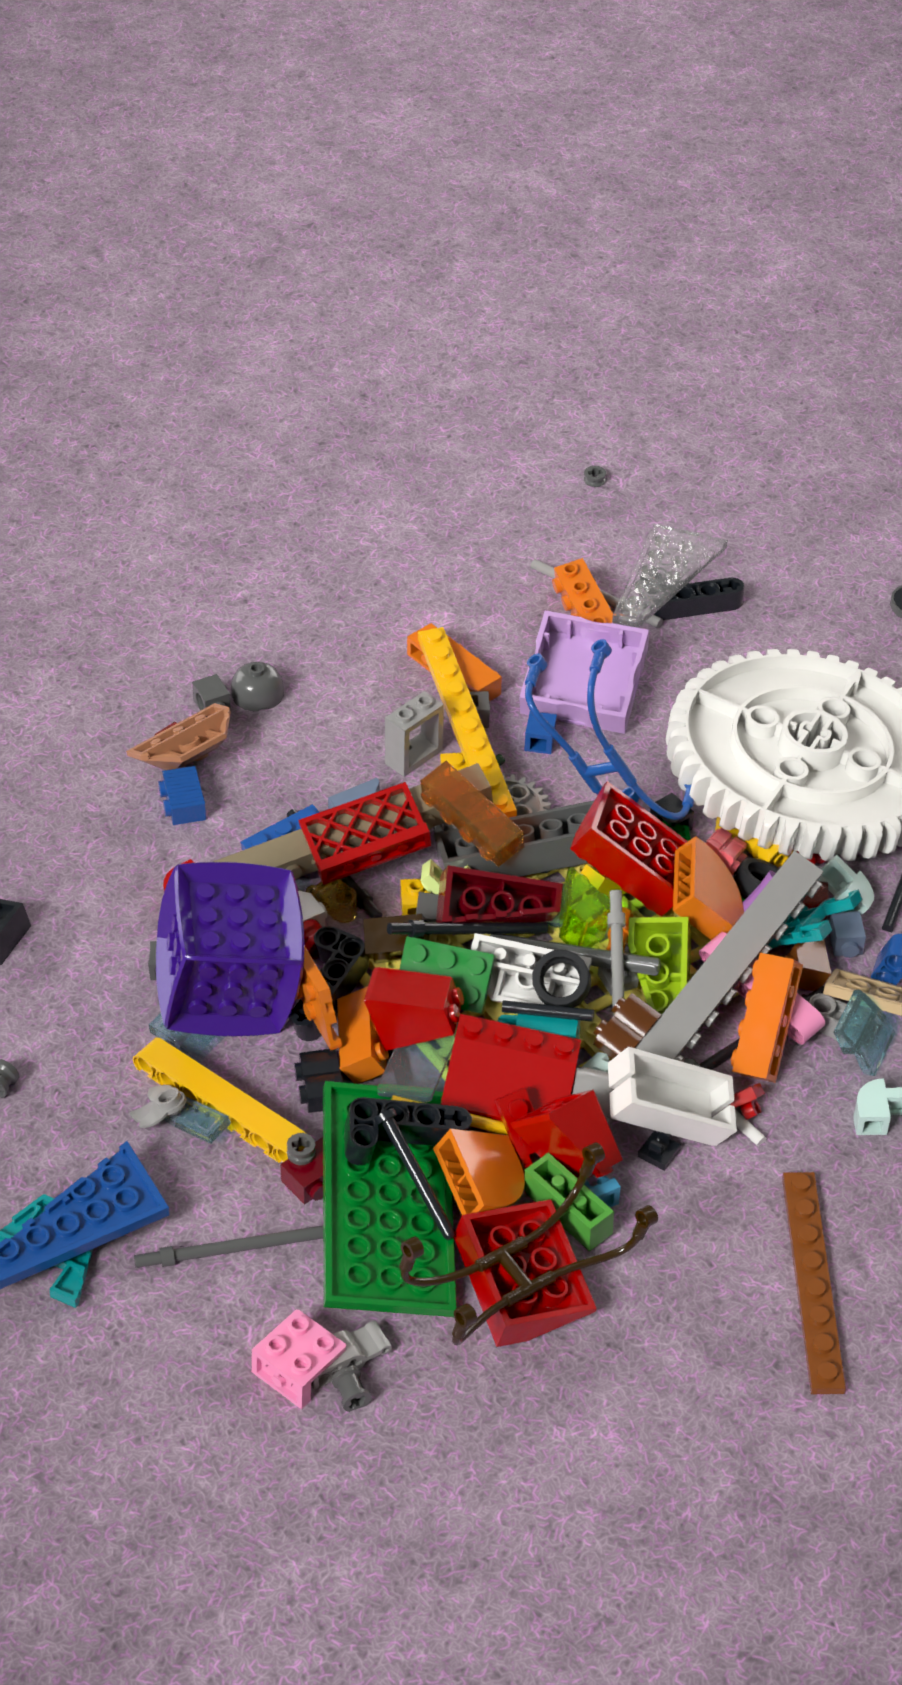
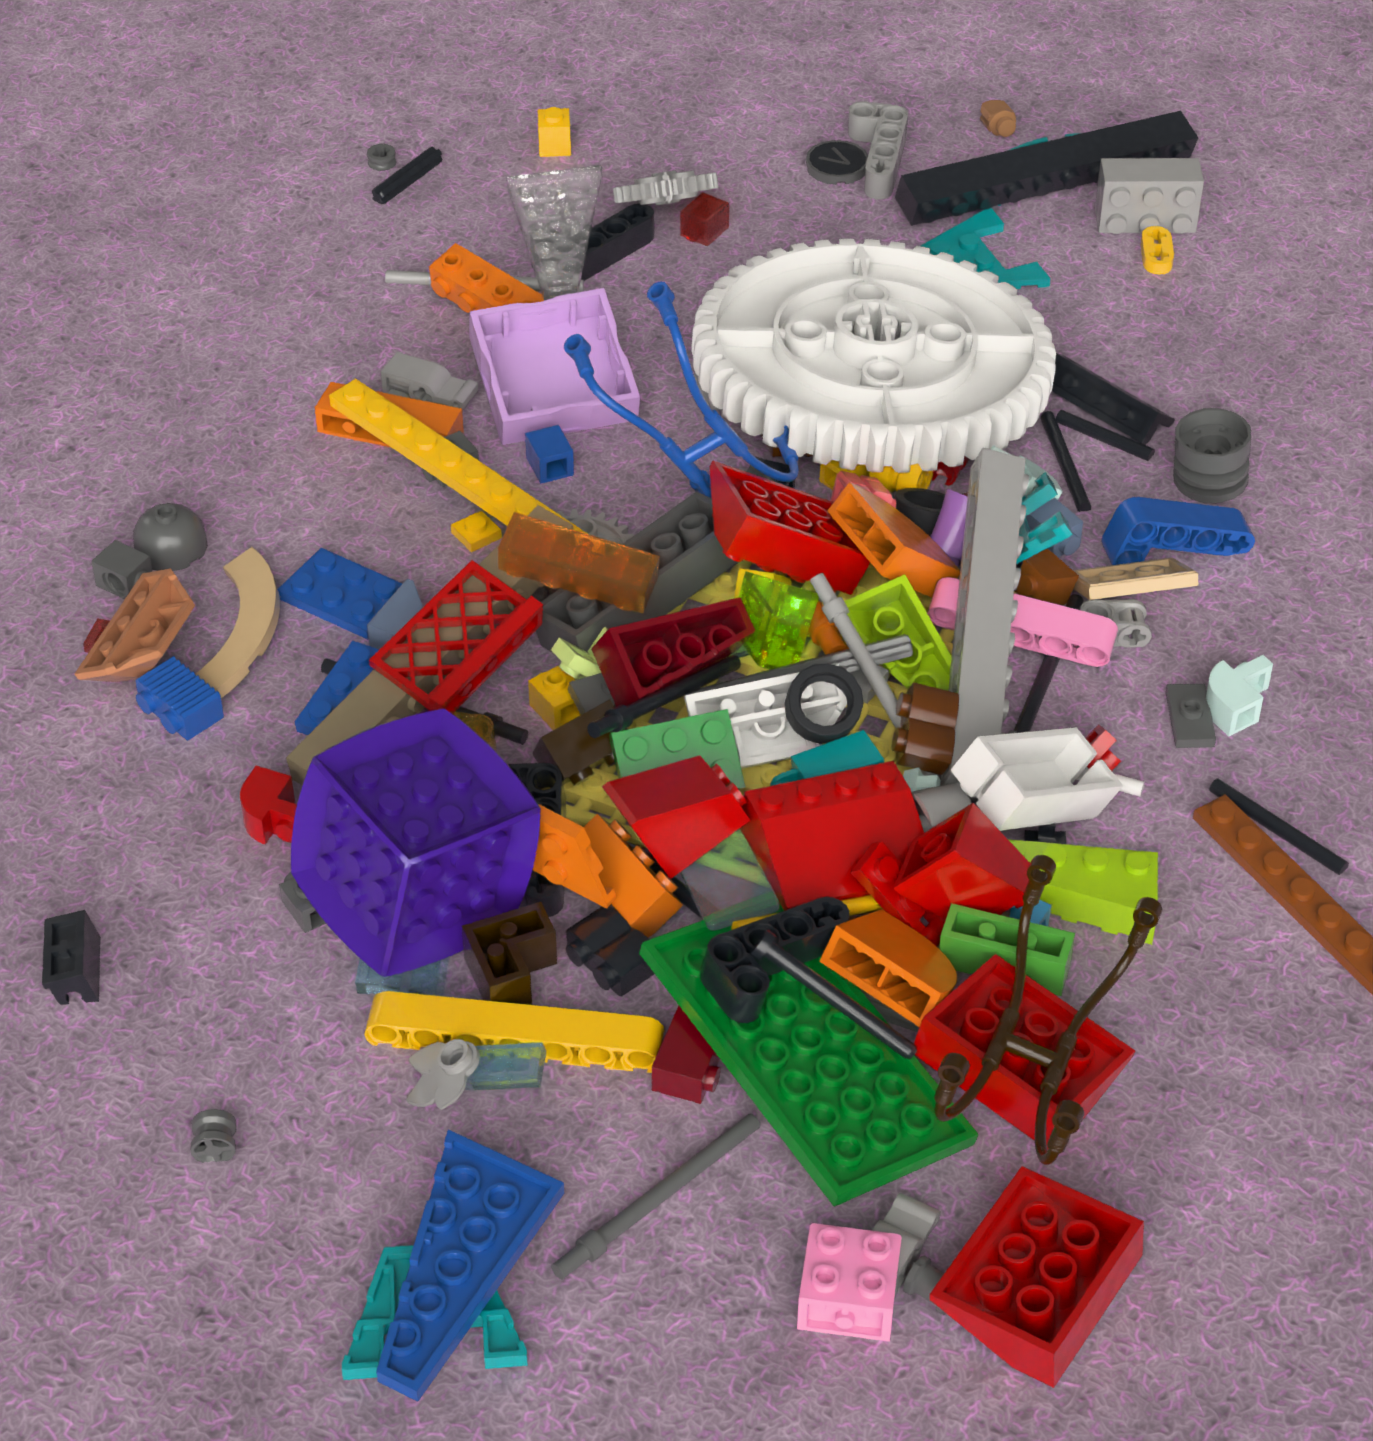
camera: 30 degrees left, 0 degrees up
(252, 1047) = (507, 949): none -> dark brown brick
(270, 763) = (254, 624): none -> tan tile
(293, 1145) = (666, 1048): dark grey bush -> none
(335, 765) = (338, 591): none -> blue plate
(408, 755) = (415, 510): light grey window -> none
(418, 1416) = (1040, 1273): none -> red slope
(497, 648) = (425, 381): none -> light grey piece
(548, 1010) = (832, 745): black bar -> none
(602, 496) = (407, 175): none -> black axle
(656, 1179) = (1096, 883): none -> lime wedge
(723, 503) = (554, 132): none -> yellow brick
(764, 574) = (665, 187): none -> light grey gear
(766, 1017) = (1065, 646): orange brick -> none
(780, 608) = (704, 219): none -> clear red brick
(837, 1108) = (1190, 716): none -> dark grey plate
(837, 1213) = (1281, 828): none -> black bar
(864, 1032) = (1162, 621): clear light blue slope -> none

